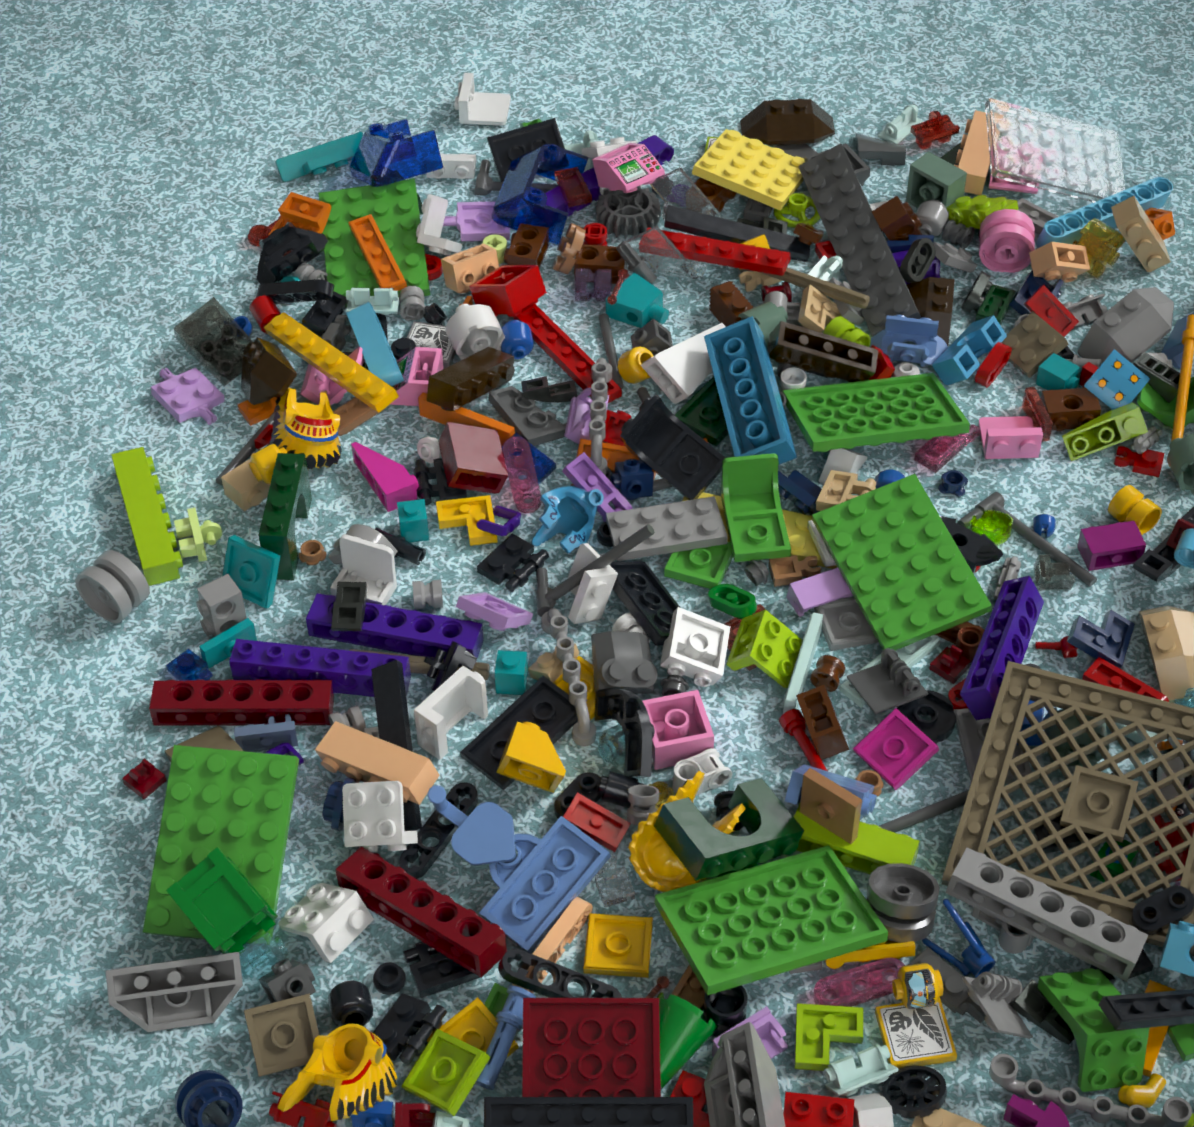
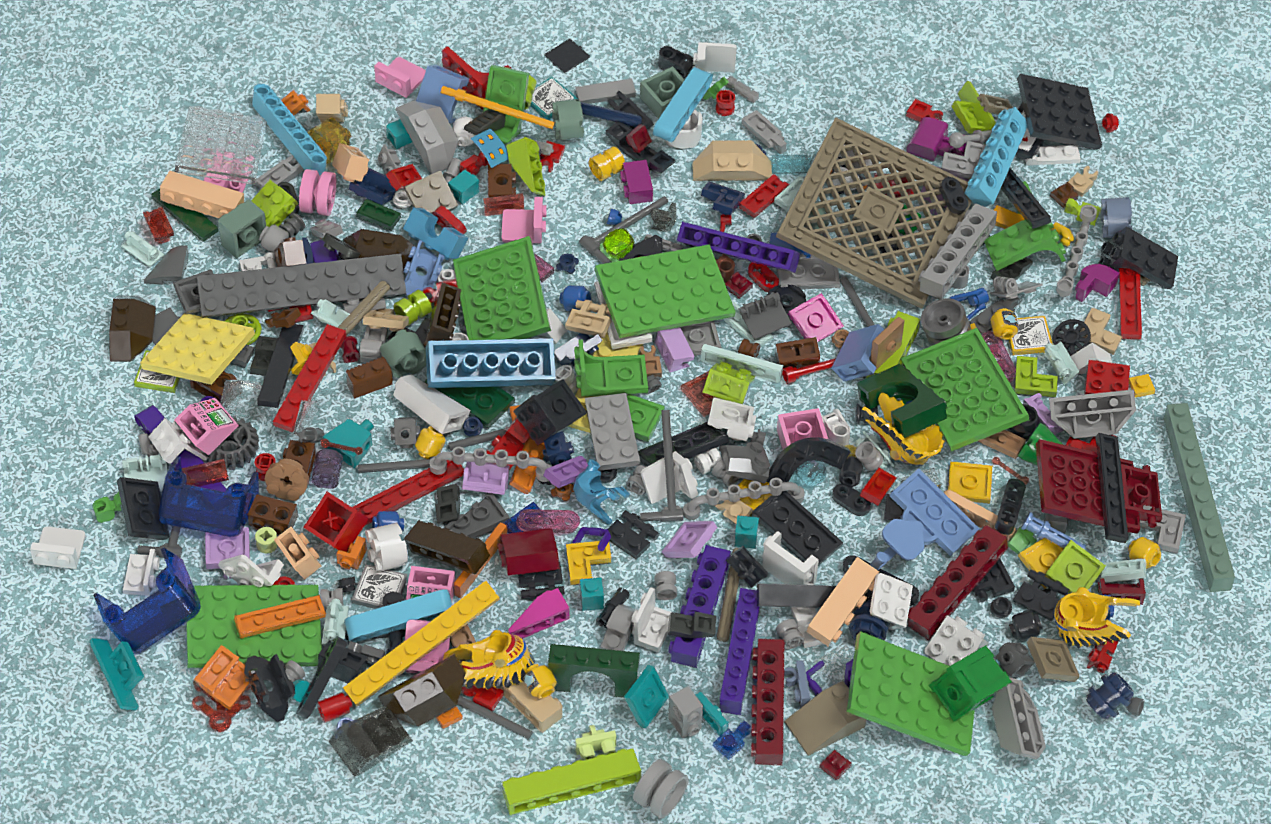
camera: 90 degrees left, 5 degrees up
(187, 395) = (425, 764): lavender plate -> none
(428, 449) = (509, 586): white plate -> none
(531, 758) = (835, 513): yellow slope -> none
(673, 403) = (472, 422): none -> dark blue plate
(732, 600) = (681, 397): green plate -> none
(980, 287) = (364, 221): pearl dark grey plate -> none

